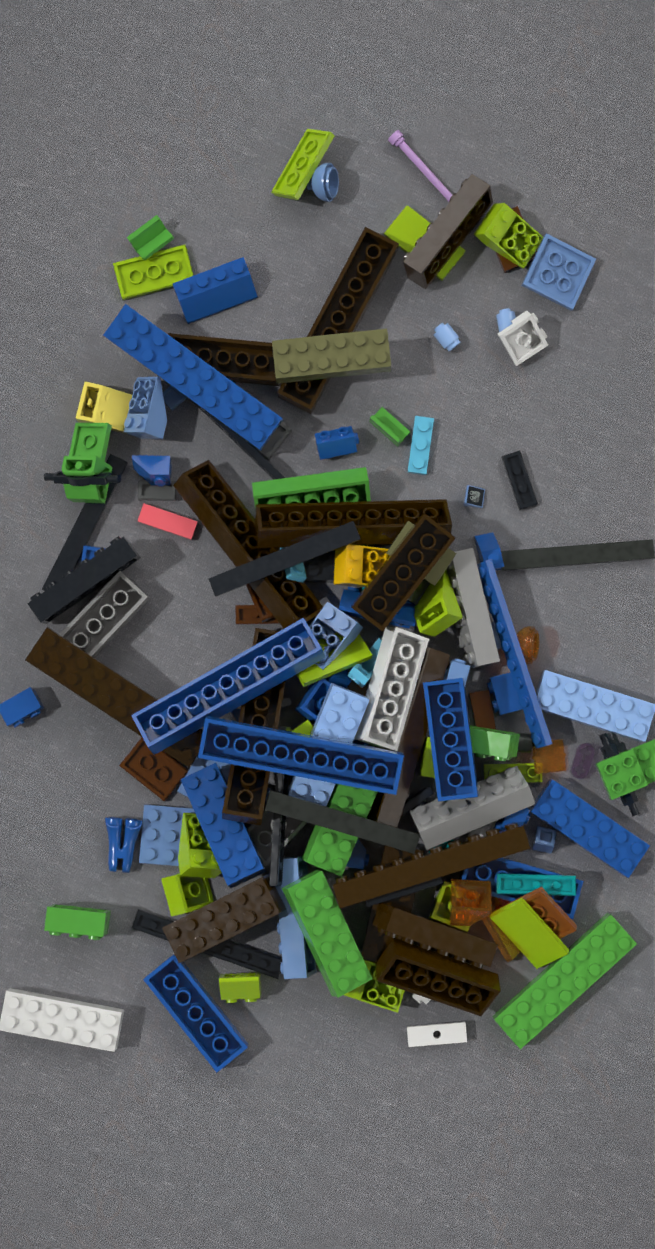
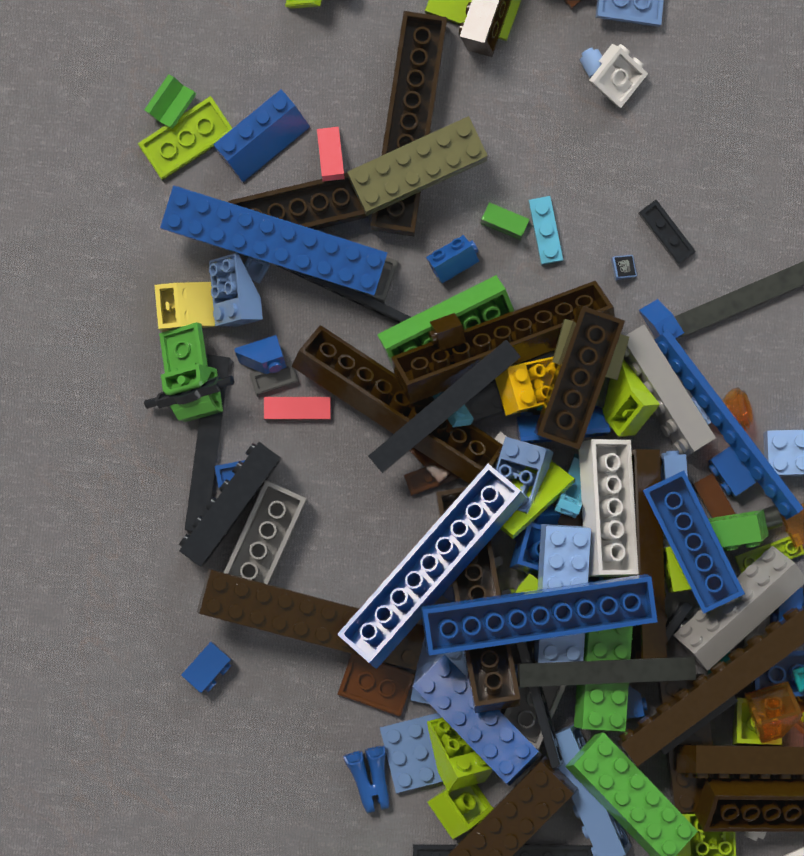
camera: 20 degrees left, 0 degrees up
(265, 323) = (330, 154): none -> coral tile
(308, 499) = (447, 332): none -> dark brown brick
(446, 336) = (533, 101): light blue brick -> none

